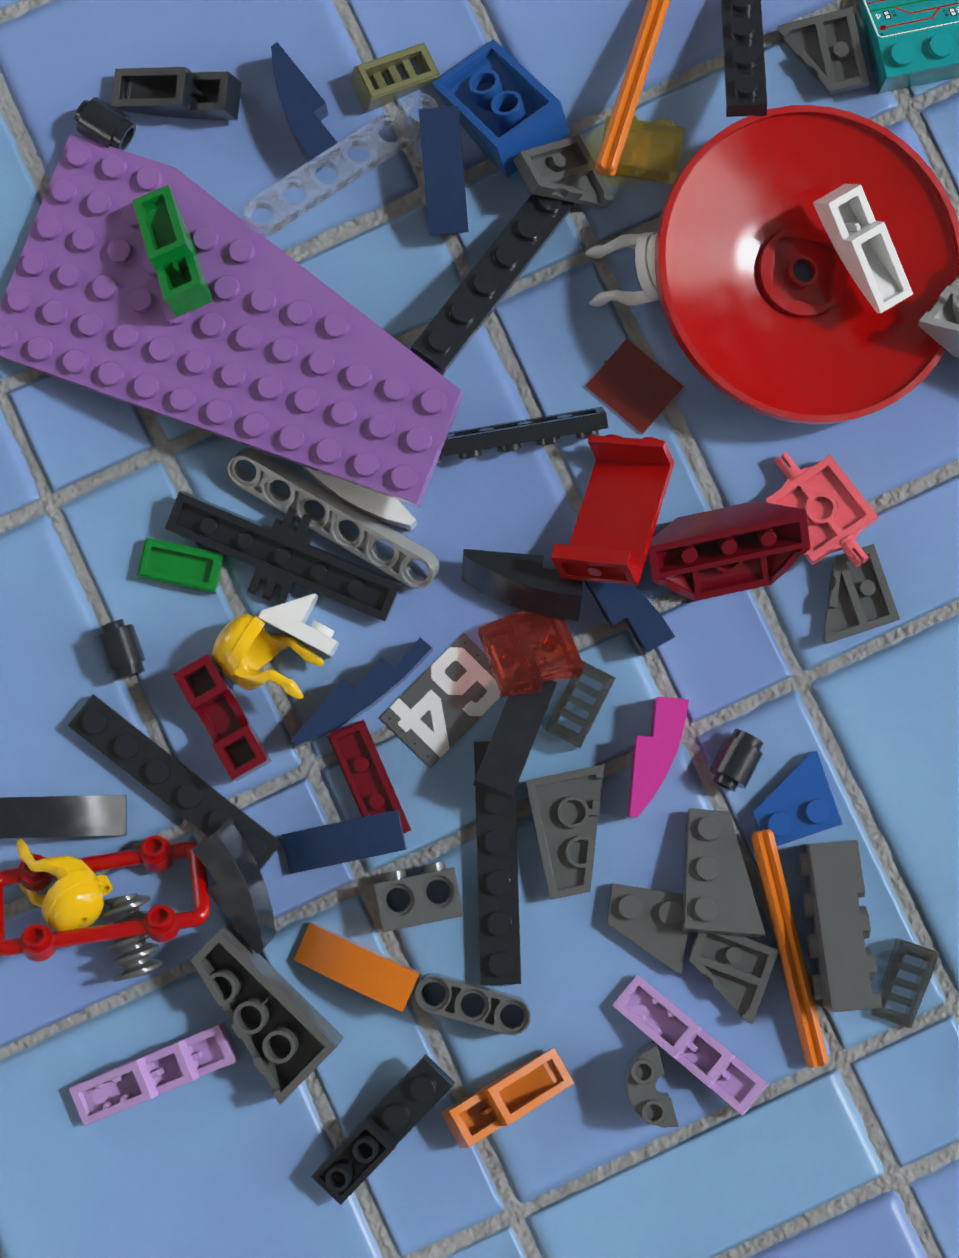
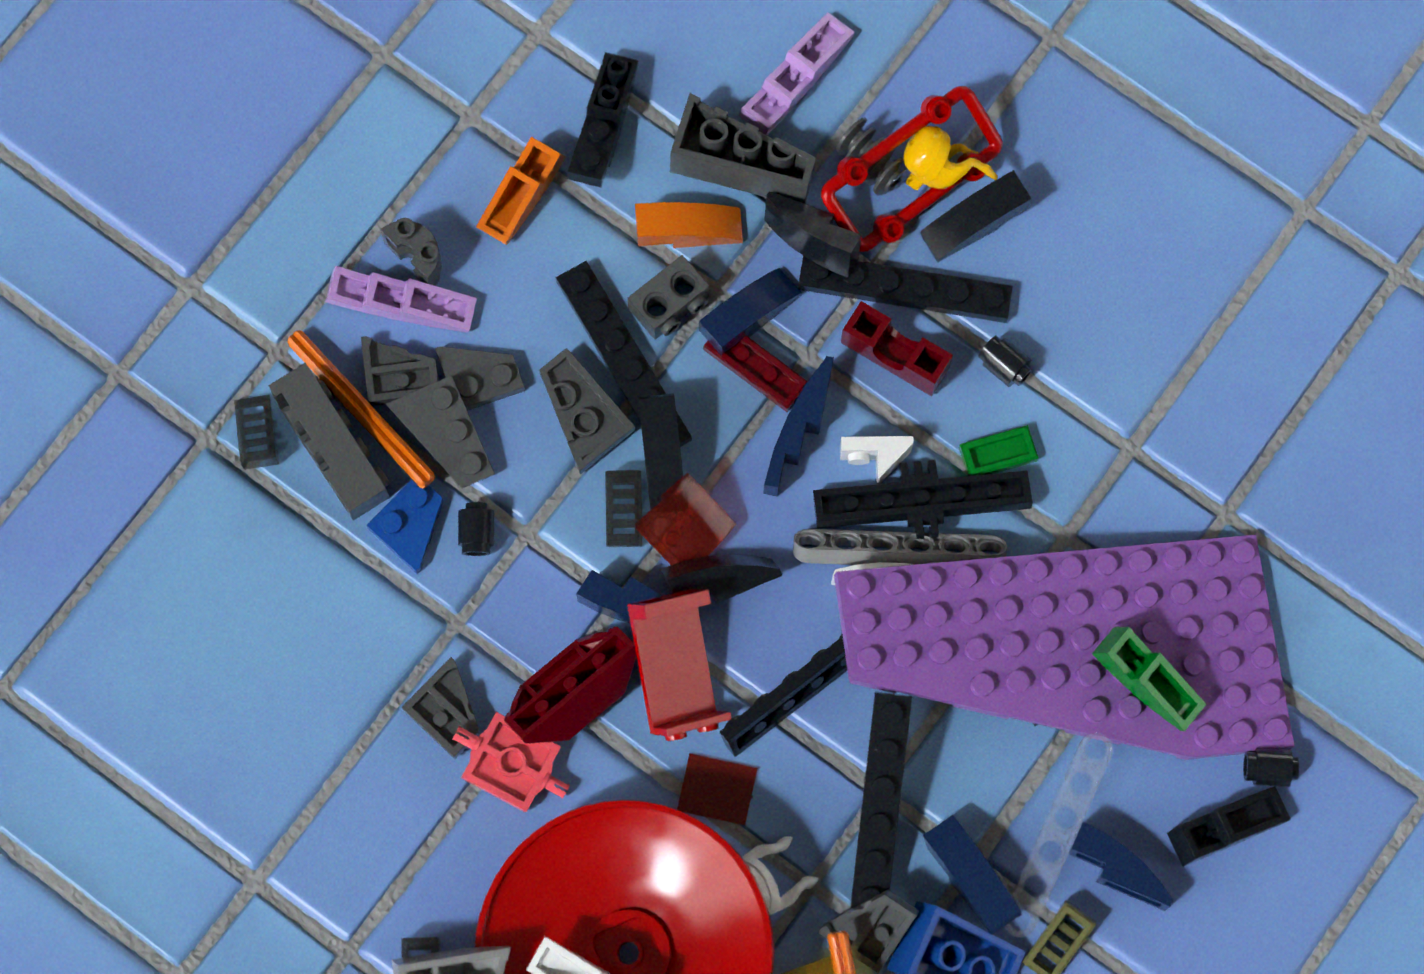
camera: 150 degrees right, 10 degrees down
(246, 647) = (909, 415): yellow hair -> none
(444, 701) = (733, 457): sticker -> none
(490, 1015) = (596, 230): dark grey beam -> none
(656, 752) = (544, 502): dark pink slope -> none

